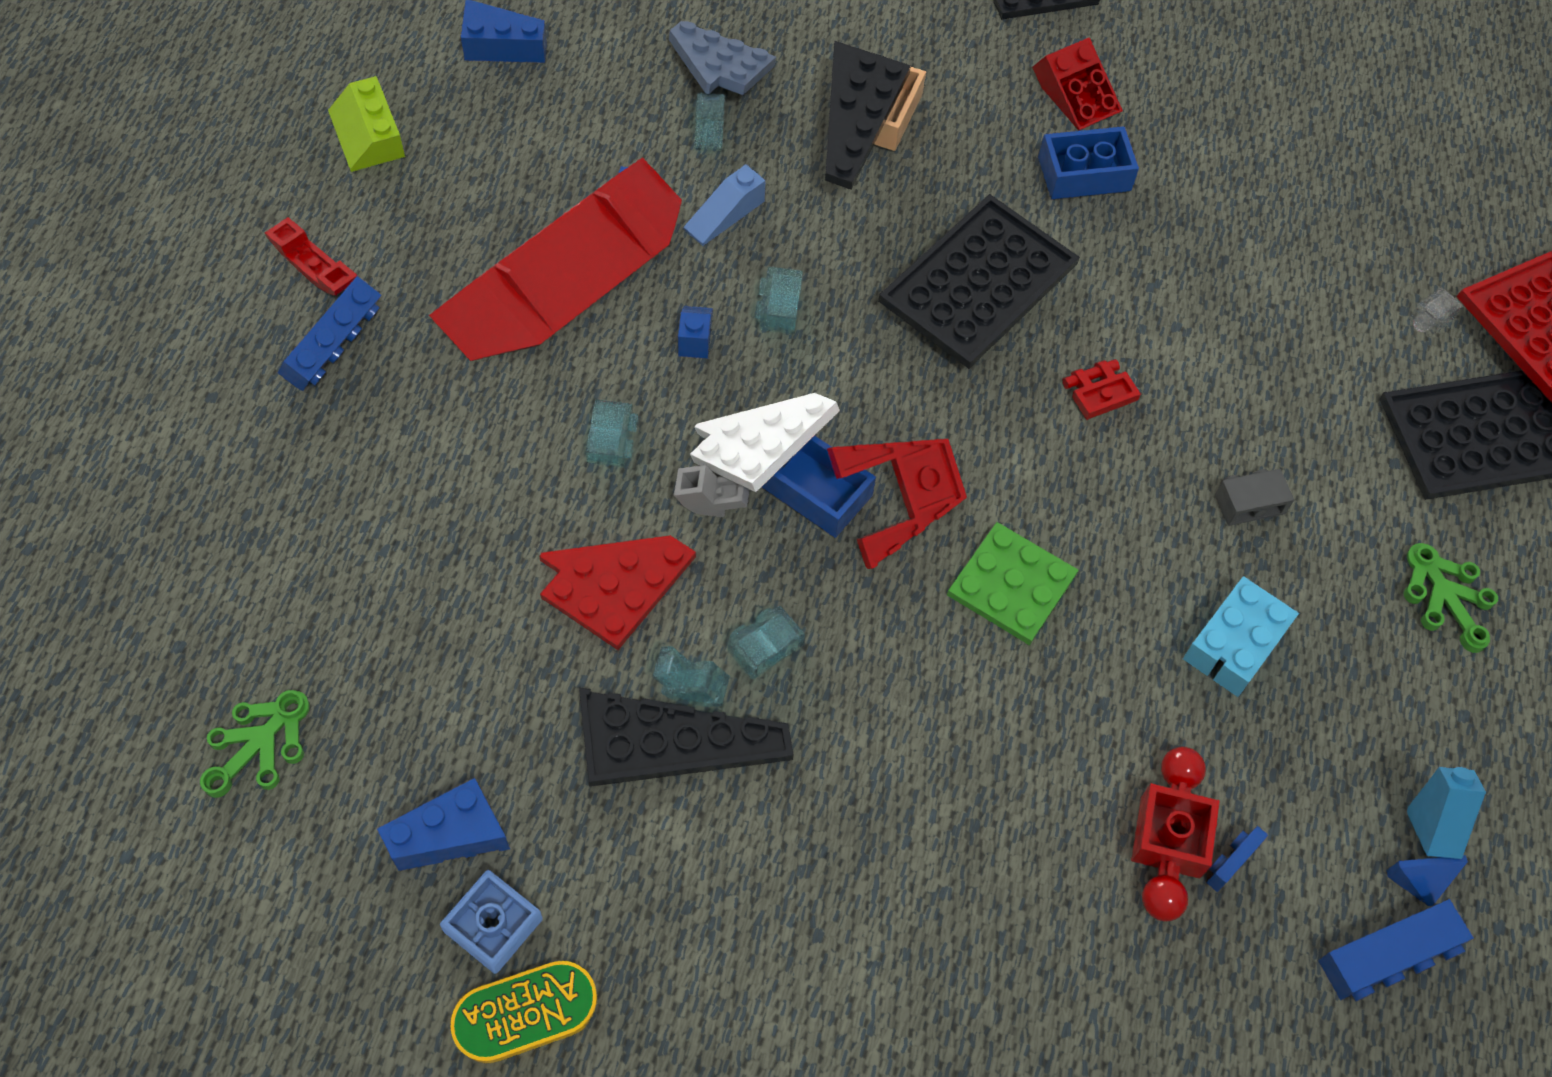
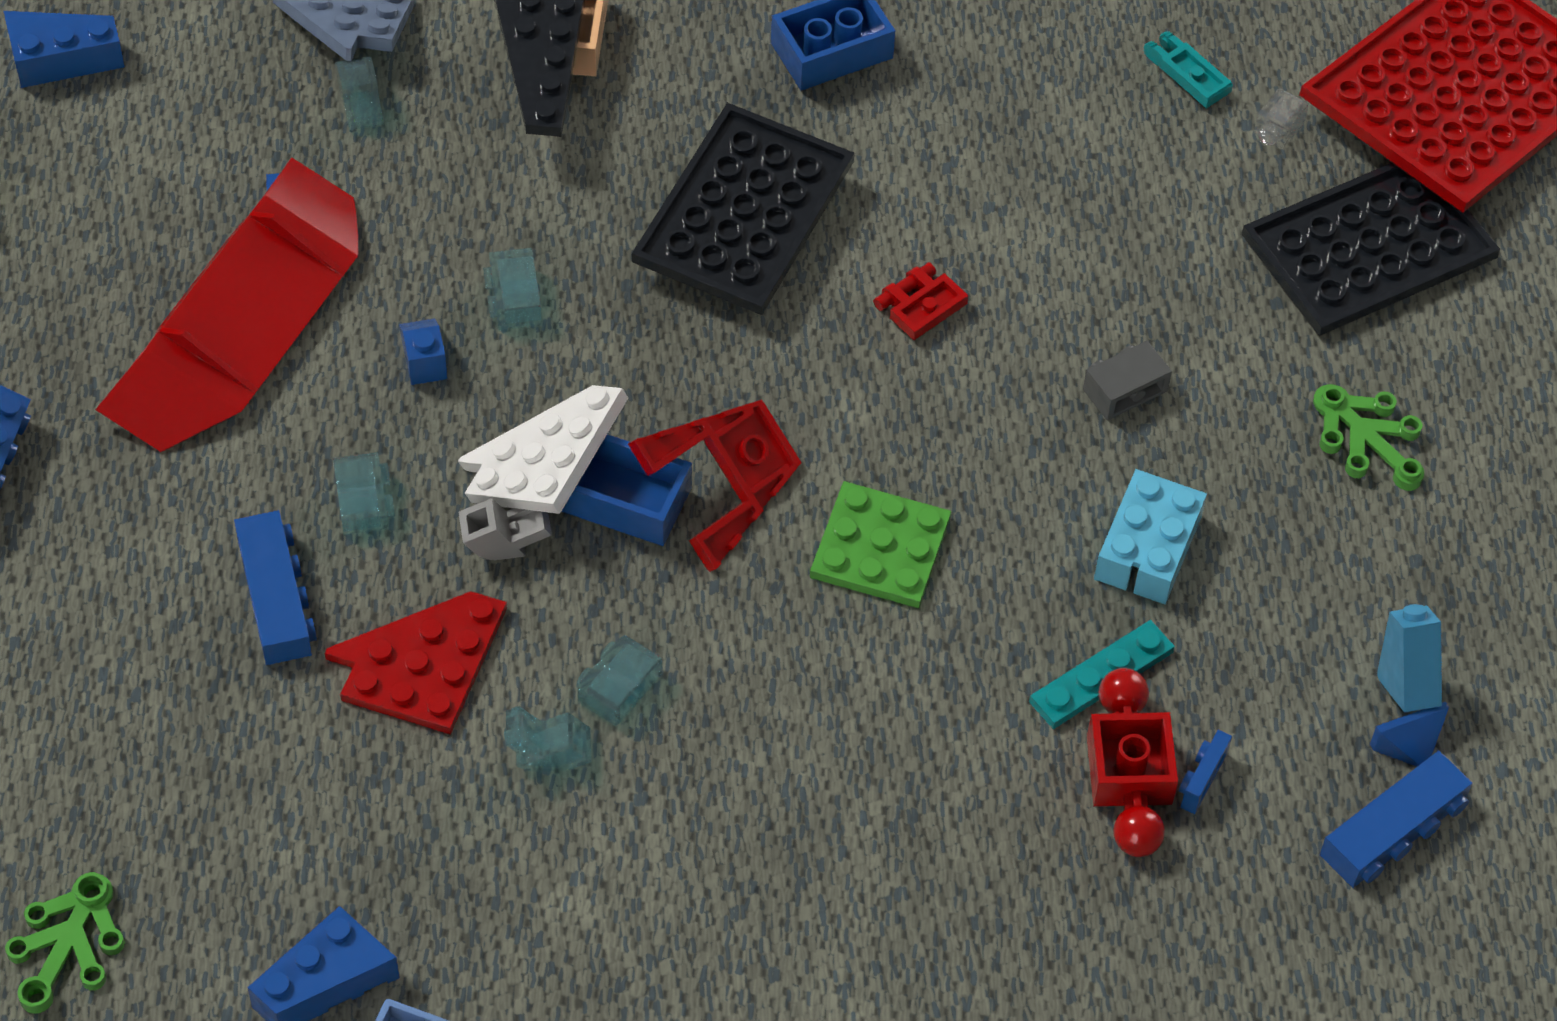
camera: 15 degrees left, 5 degrees down
(516, 492) = (273, 587): none -> blue brick
(663, 739) = (537, 814): black wing -> none
(728, 204) = (413, 191): medium blue slope -> none
(1149, 749) = (1081, 685): none -> teal plate
(1368, 254) = (1189, 69): none -> teal hinge

